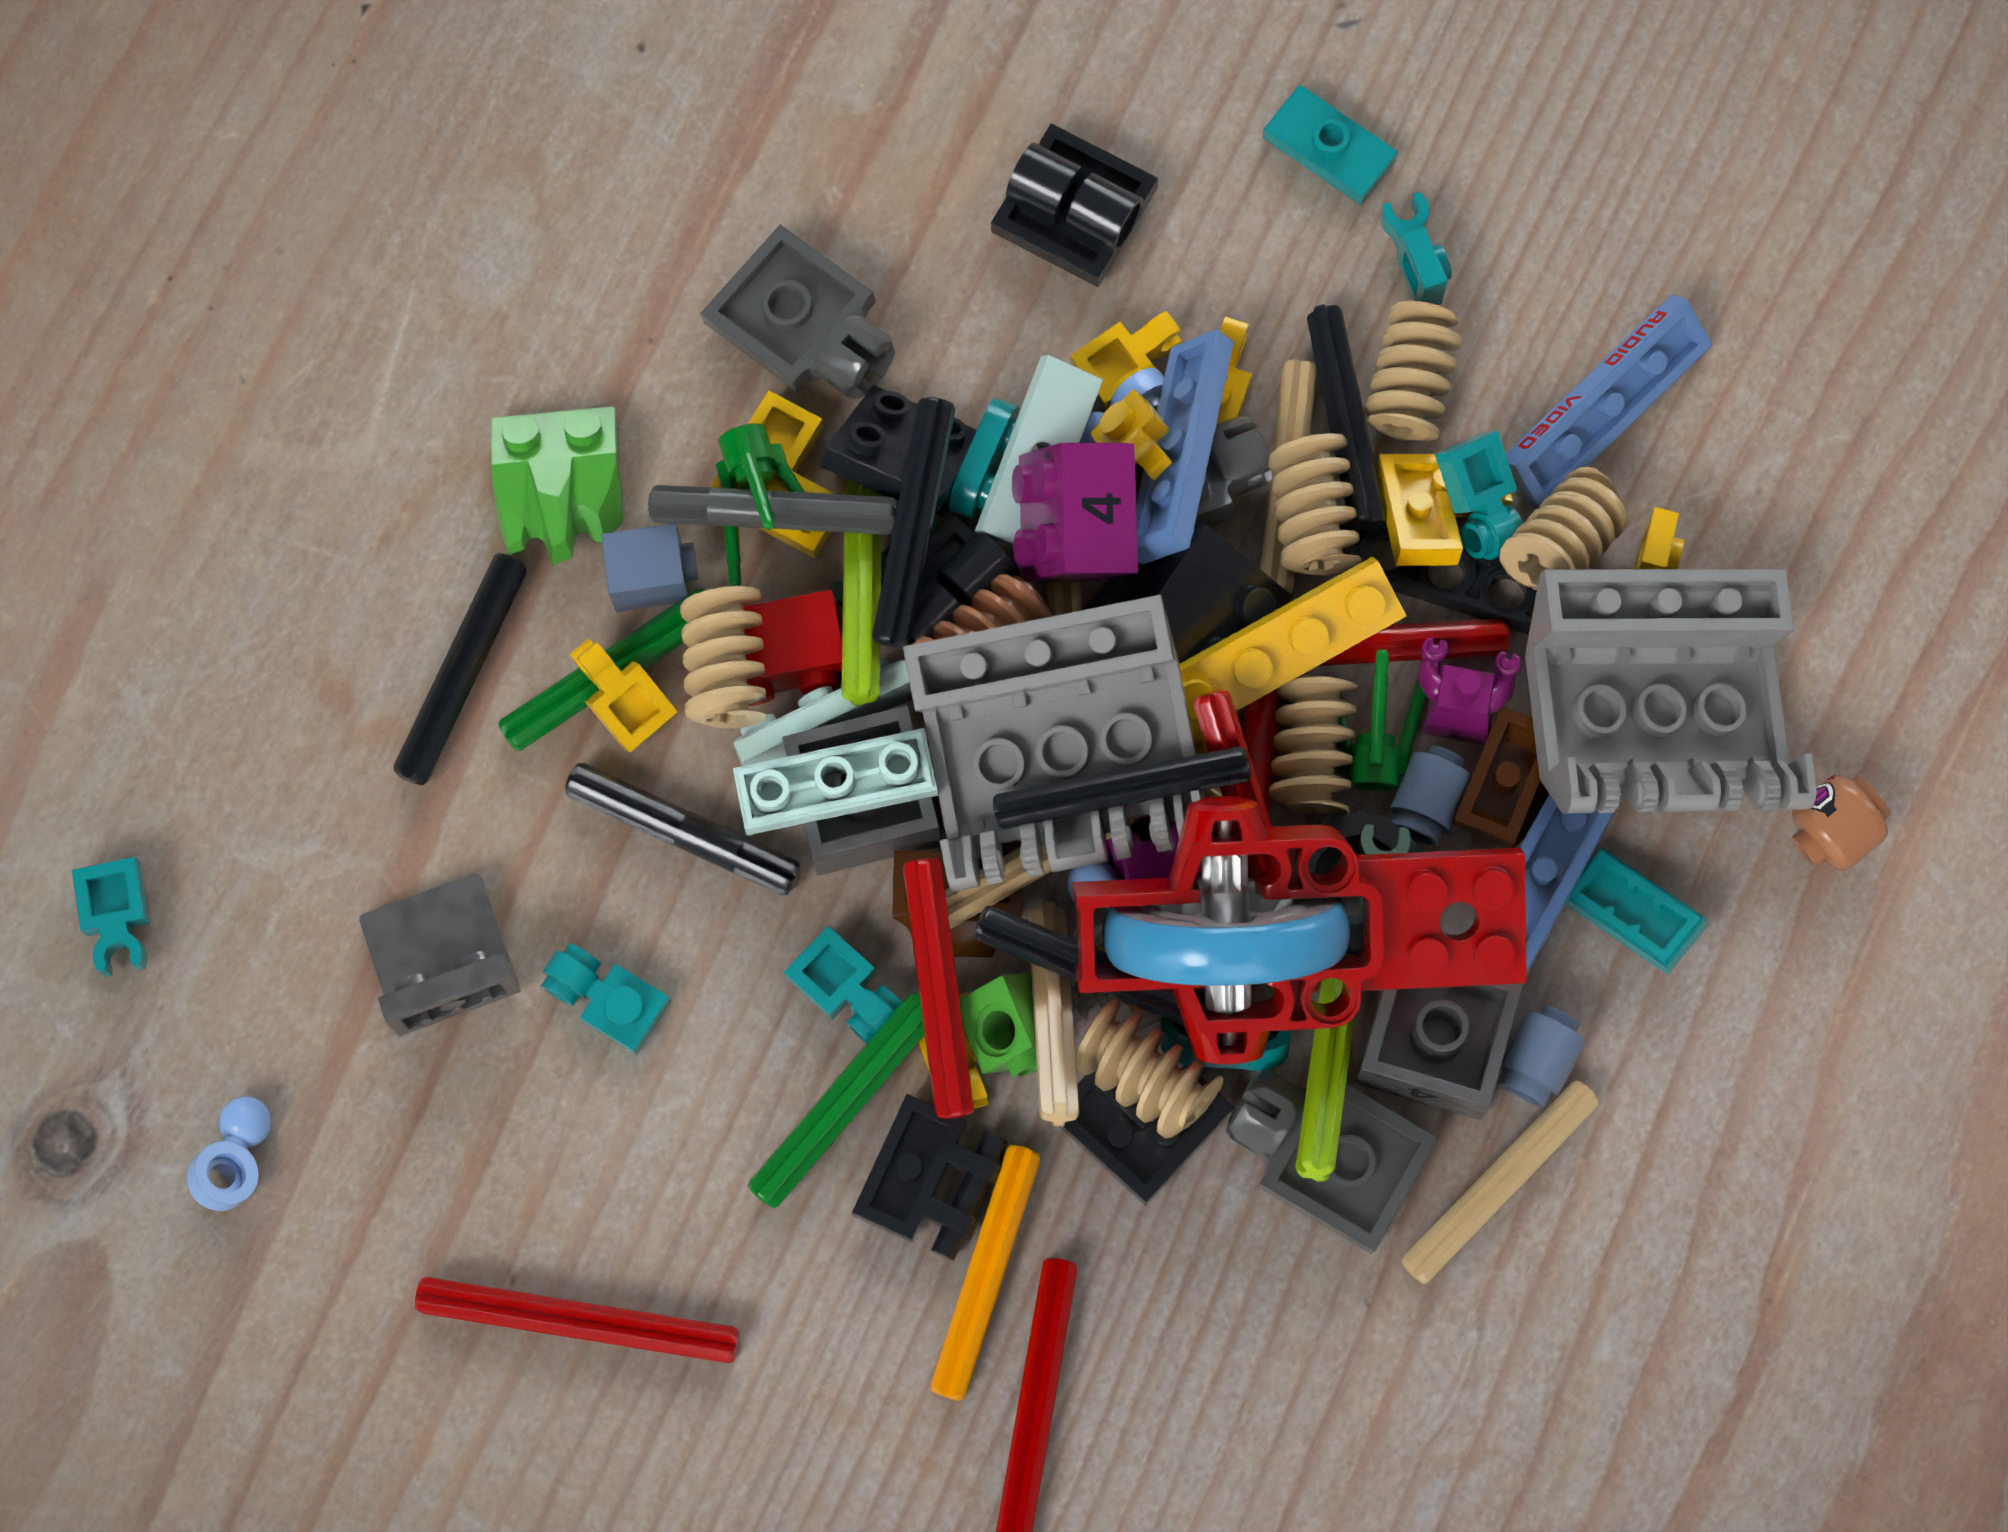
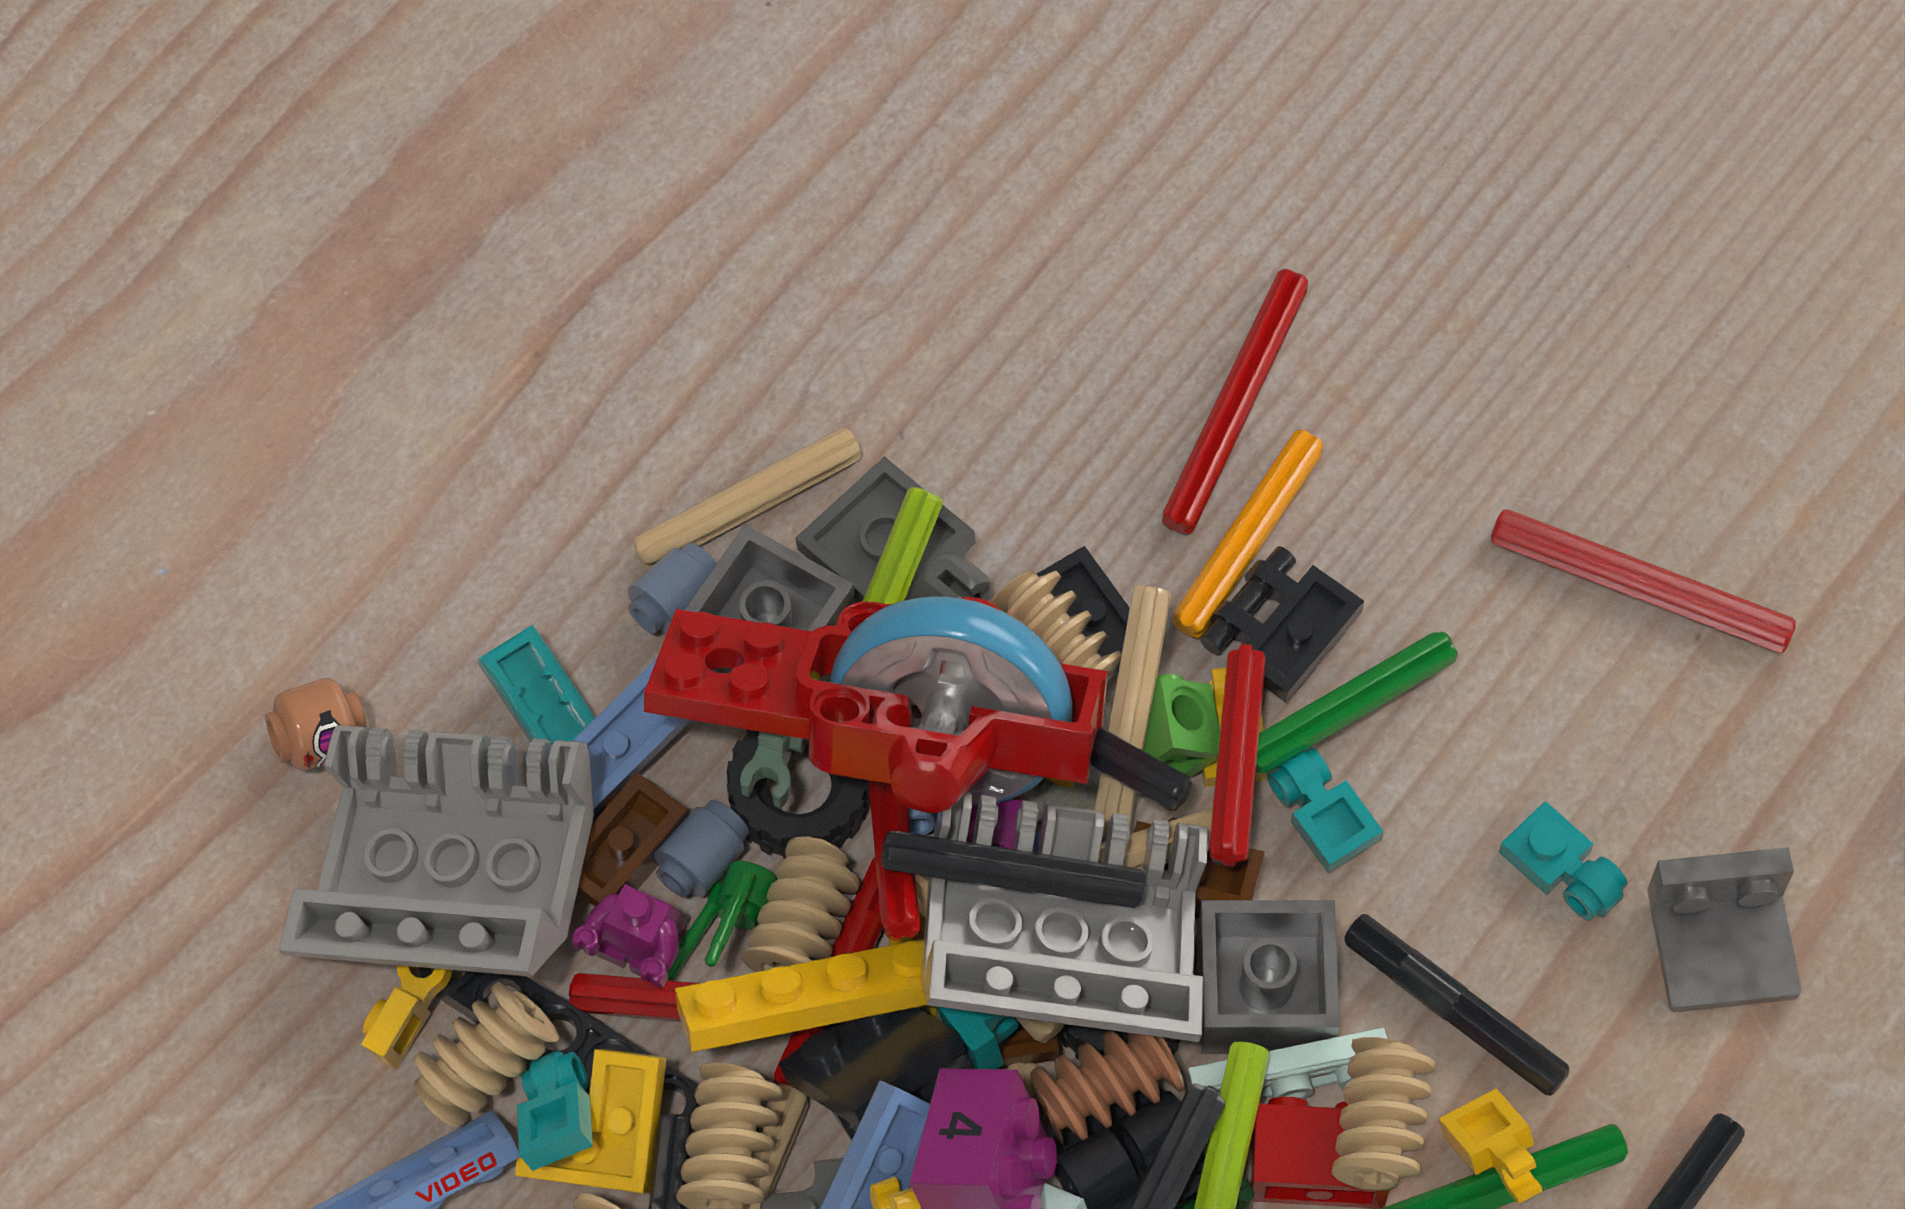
camera: 170 degrees left, 10 degrees down
(794, 792) = (1338, 964): light aqua tile -> none

